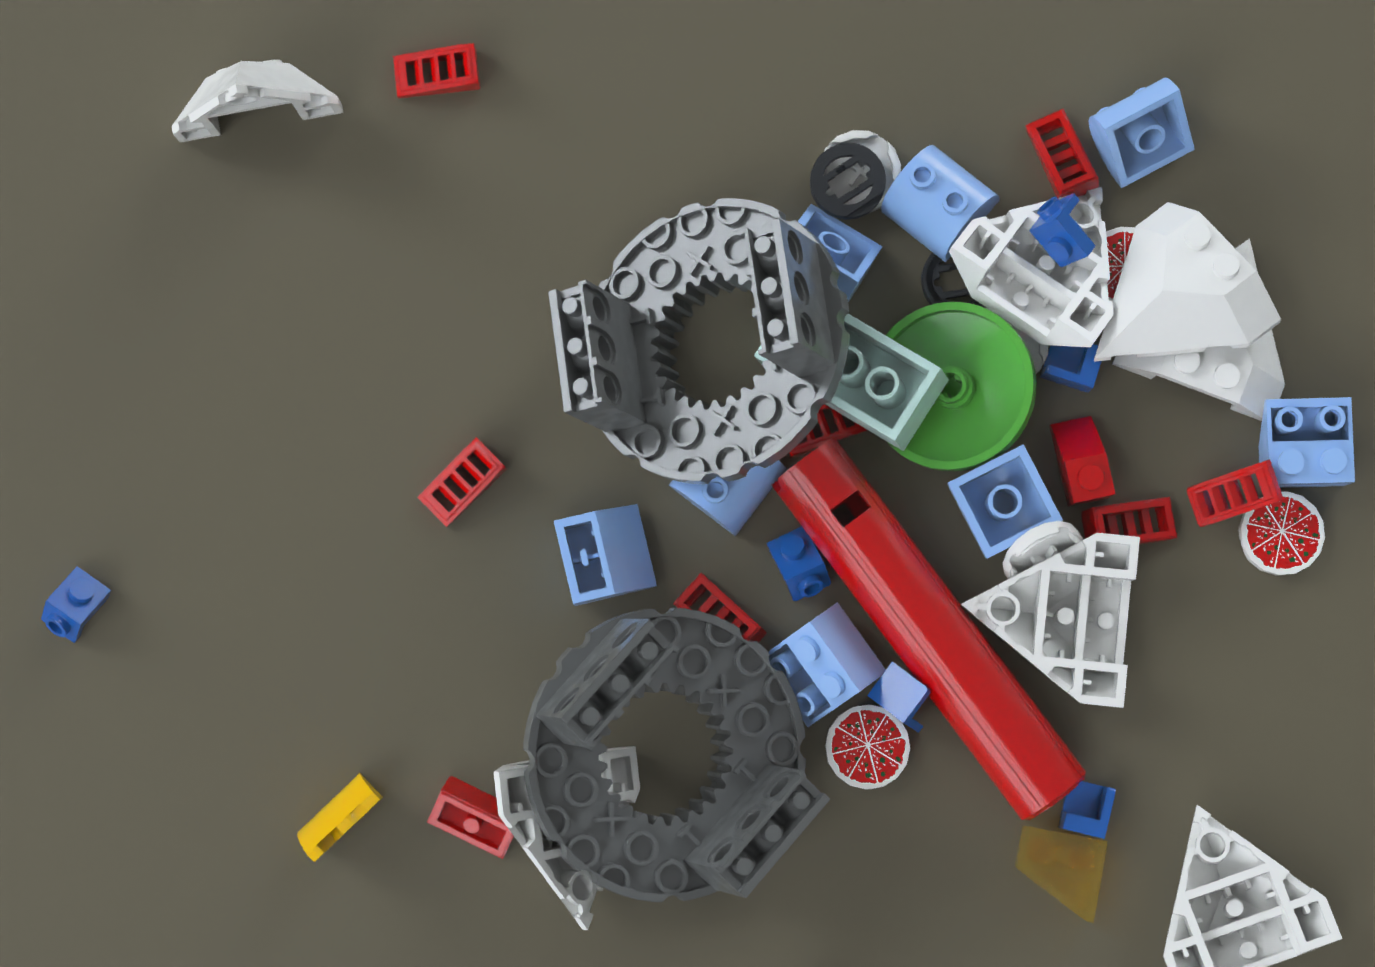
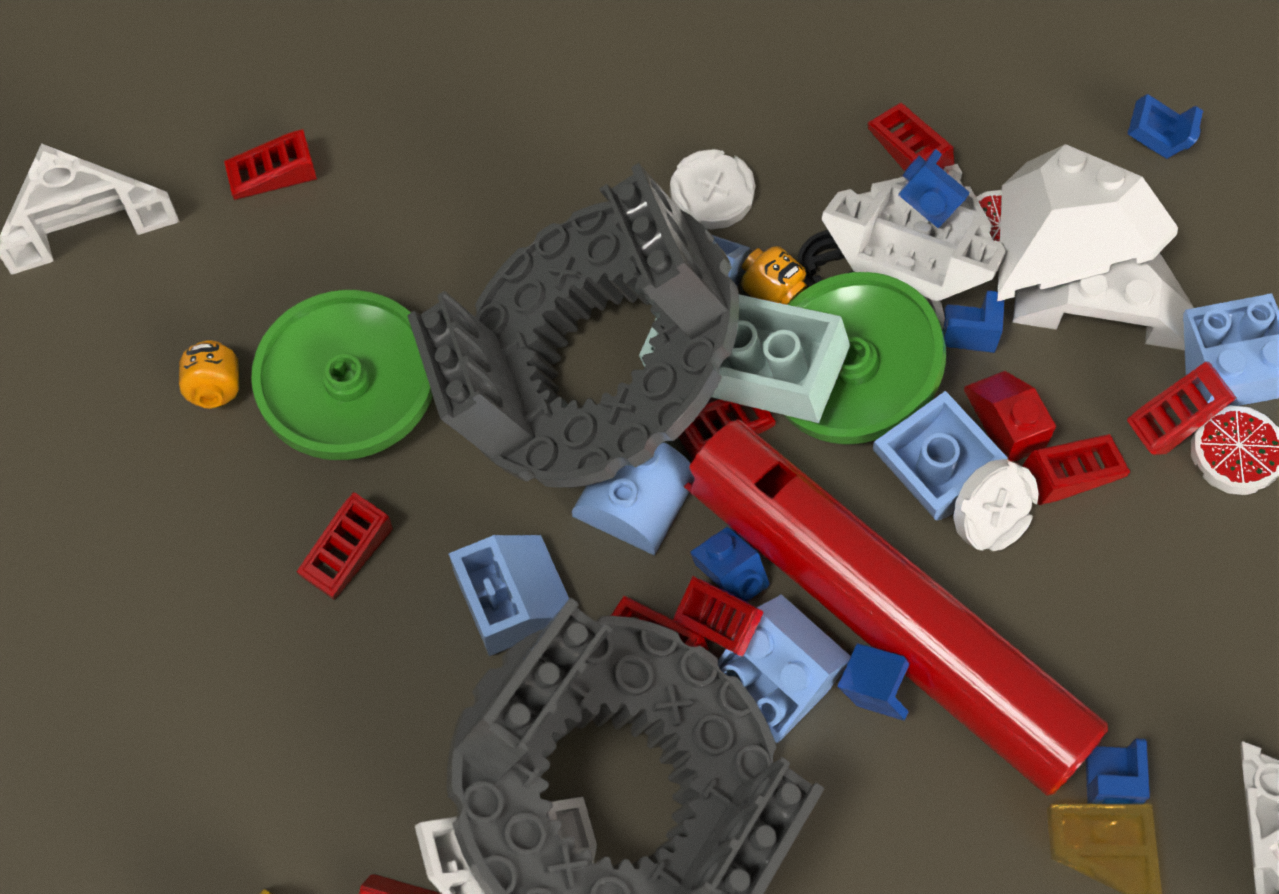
camera: 10 degrees left, 20 degrees down
(358, 292) = (208, 372): none -> light orange head
(479, 317) = (341, 375): none -> bright green dish
(756, 608) = (698, 604): none -> red slope
(837, 207) = (703, 167): black piece -> none
(867, 747) = (849, 751): tile -> none
(896, 287) = (773, 275): none -> light orange head
(936, 200) = (791, 193): light blue brick -> none
(1070, 616) = (1042, 558): white wedge -> none
(1142, 132) = (984, 100): light blue brick -> none
(1311, 187) = (1163, 128): none -> blue bracket

